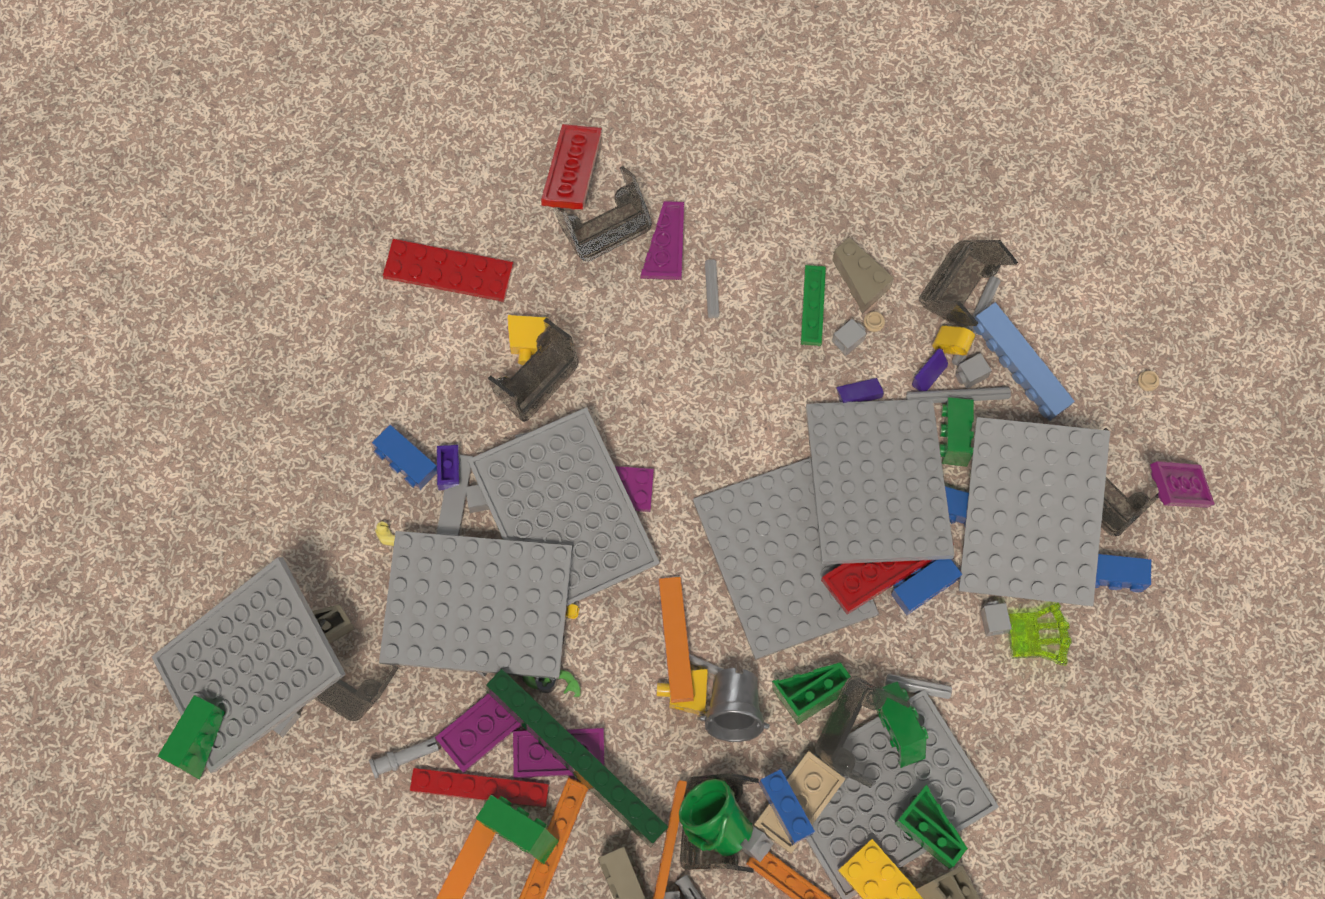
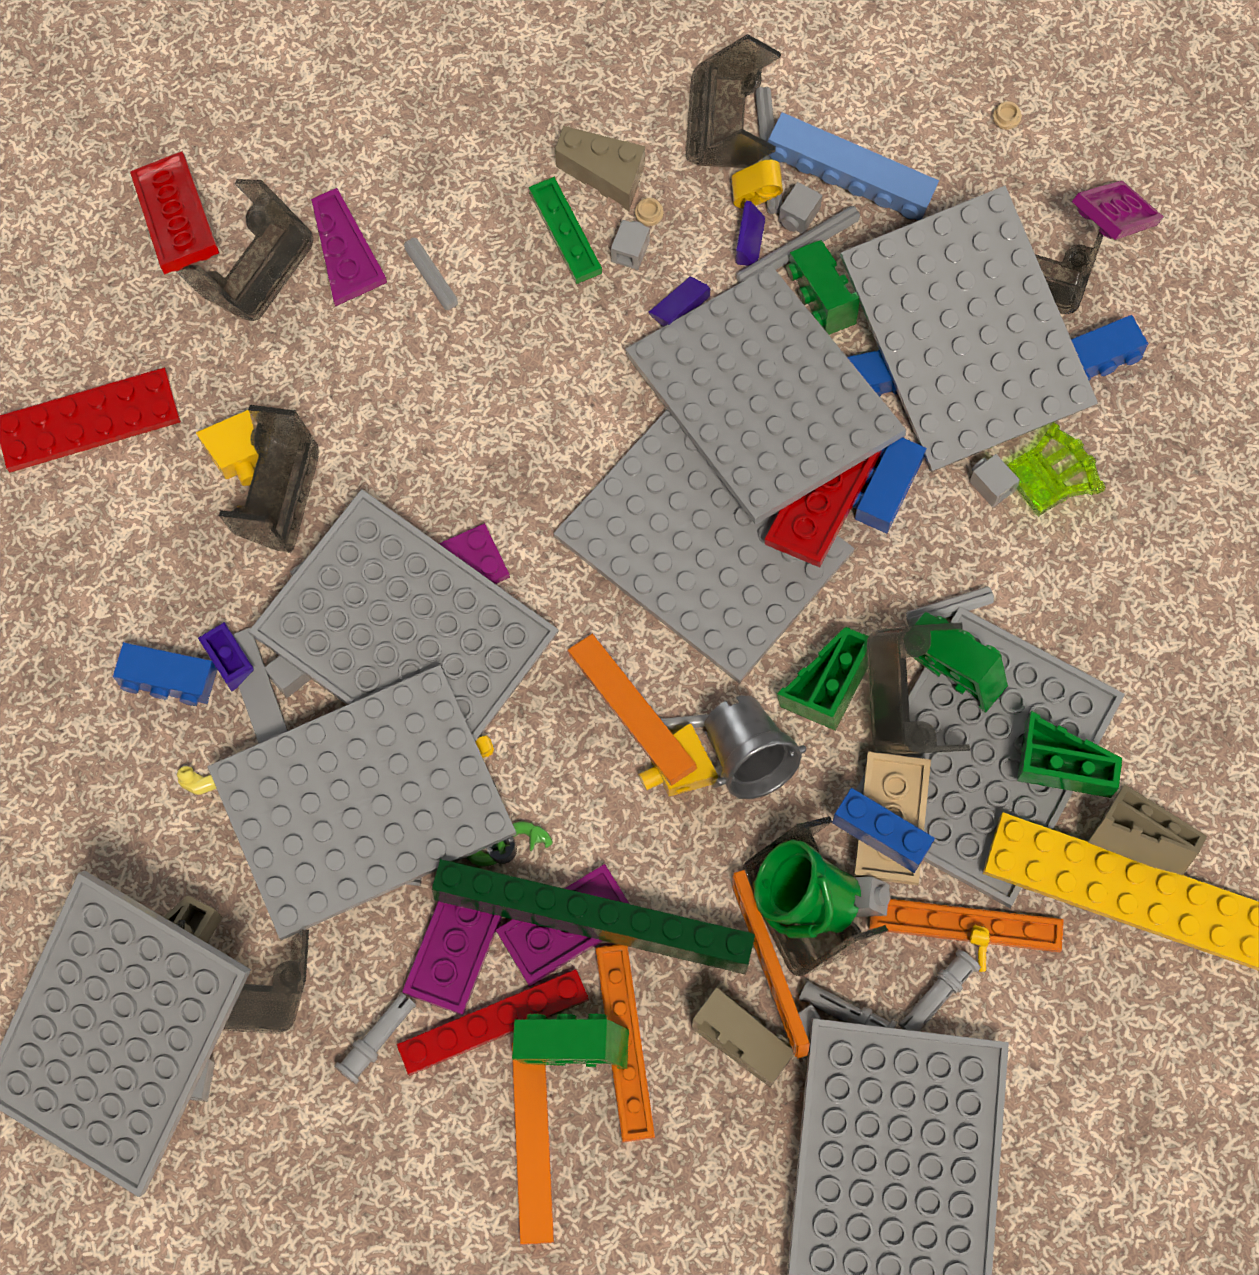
camera: 25 degrees left, 0 degrees up
(193, 737) = (93, 1163): green wedge -> none

